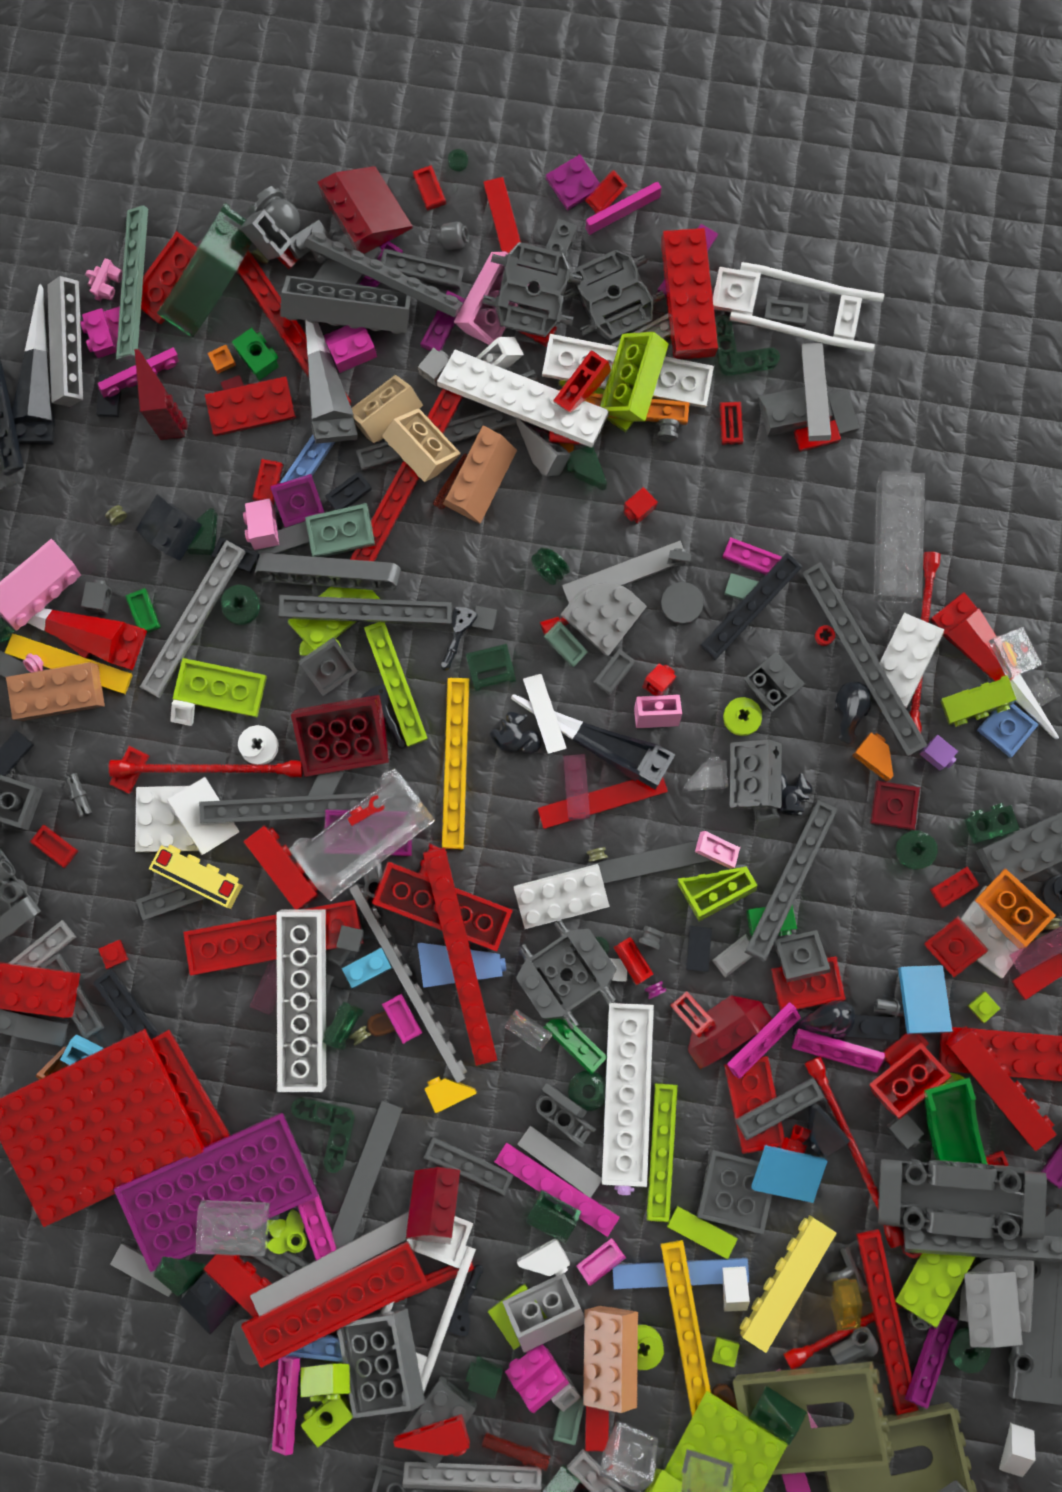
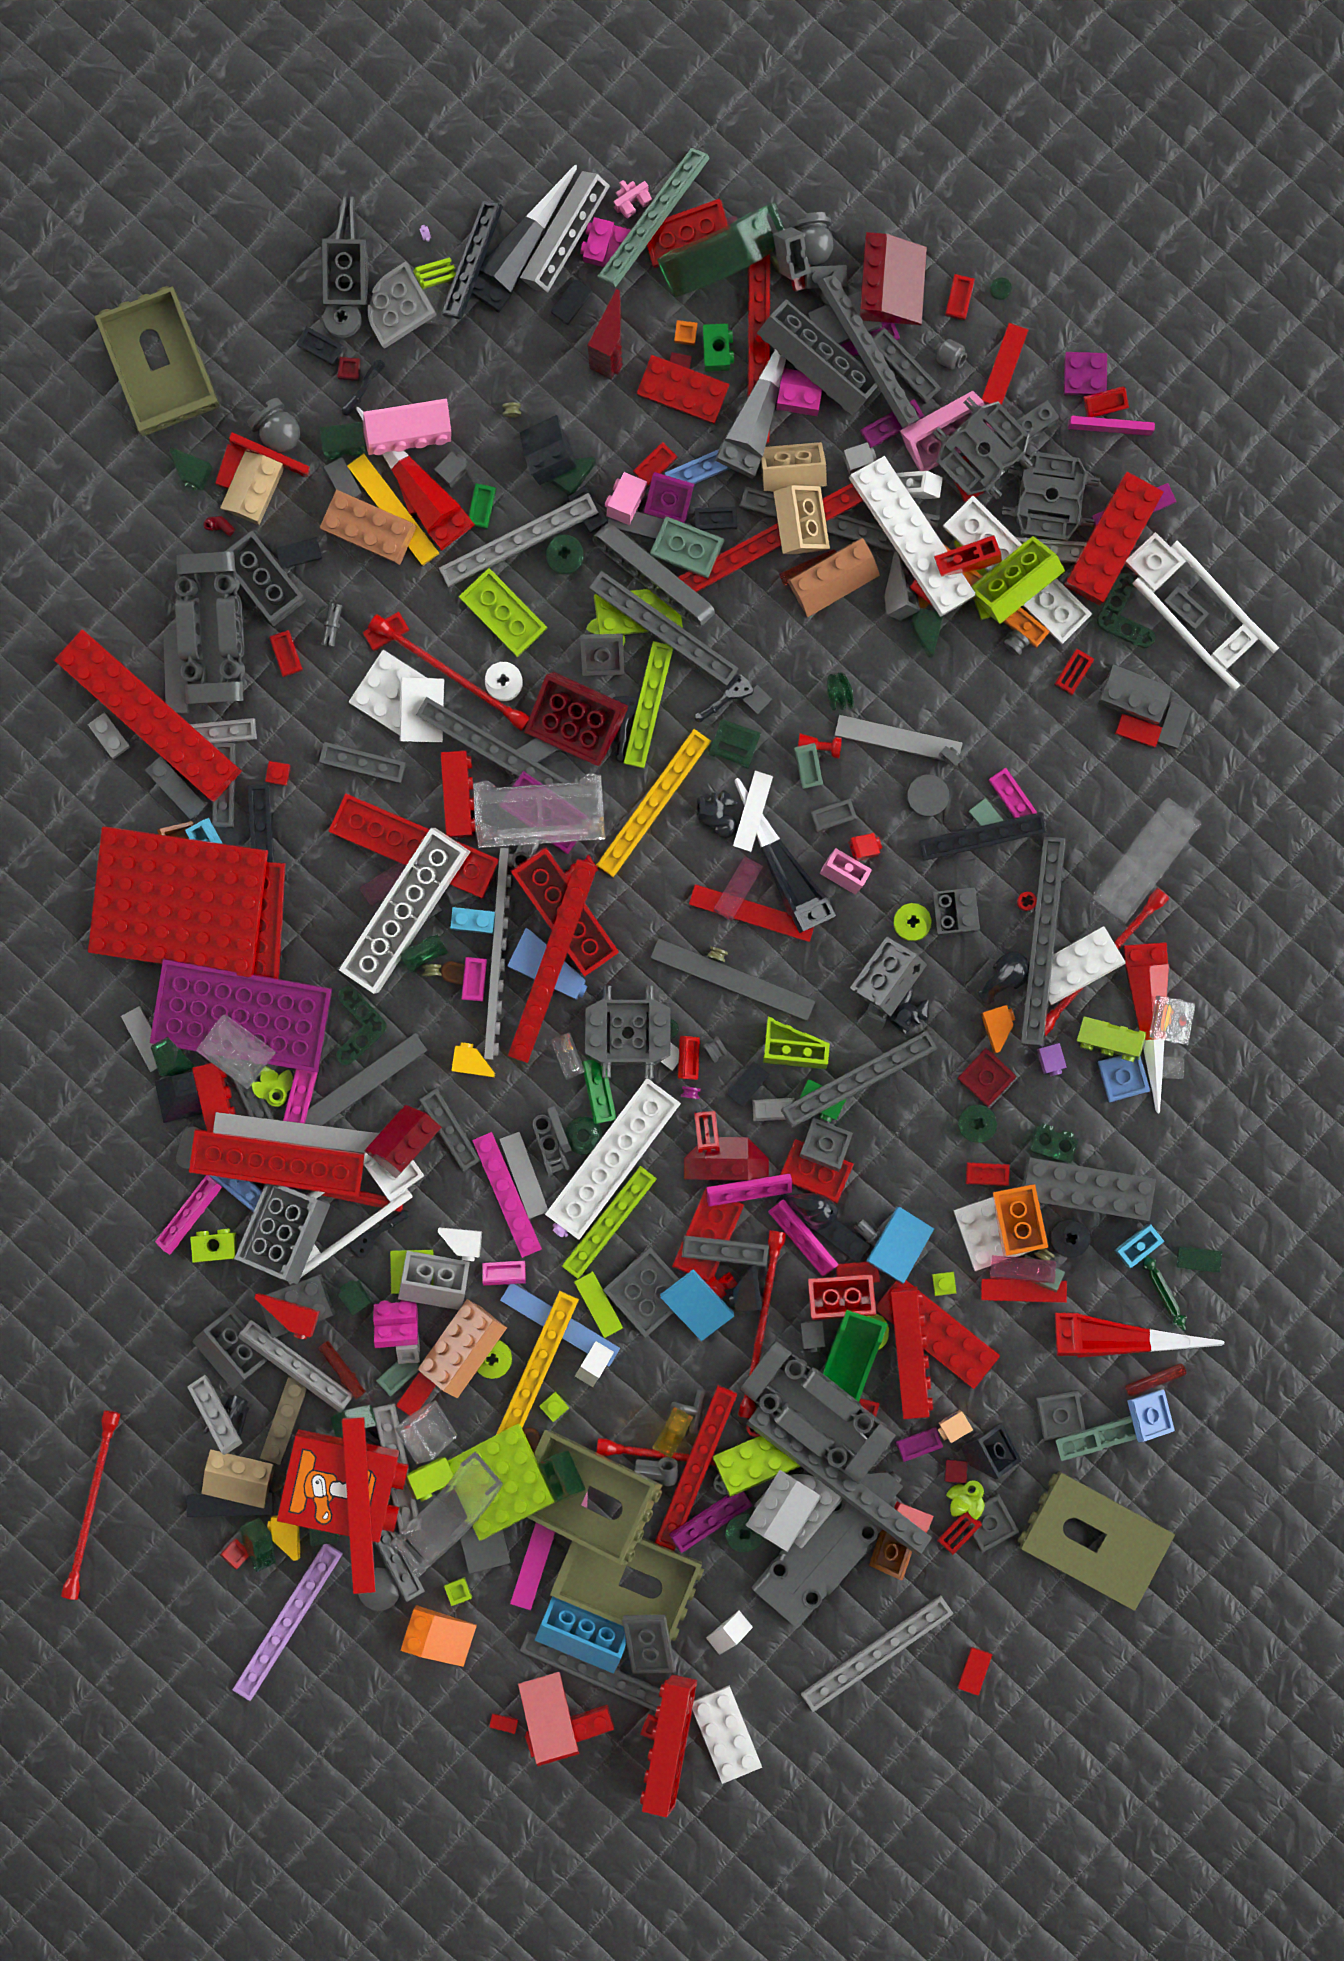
camera: 30 degrees right, 5 degrees up
(33, 663) = (365, 491): bright pink plate -> none
(128, 377) = (599, 299): dark pink plate -> none
(182, 712) = (459, 613): white tile -> none
(195, 876) = (384, 756): light yellow brick -> none
(325, 1380) = (231, 1216): lime brick -> none
(350, 938) = (474, 888): dark grey tile -> none
(360, 814) = (547, 794): red plate -> none
(553, 1216) = (490, 1212): clear green brick -> none
(561, 896) = (666, 968): white plate -> none
(604, 614) = (856, 761): light grey plate -> none
(640, 505) = (948, 691): red brick -> none
(709, 776) = (850, 951): clear slope -> none
(717, 849) = (816, 1015): bright pink plate -> none
(787, 1283) = (639, 1387): light yellow brick -> none
(815, 392) = (1159, 693): light grey tile -> none
(956, 946) = (954, 1220): red tile -> none

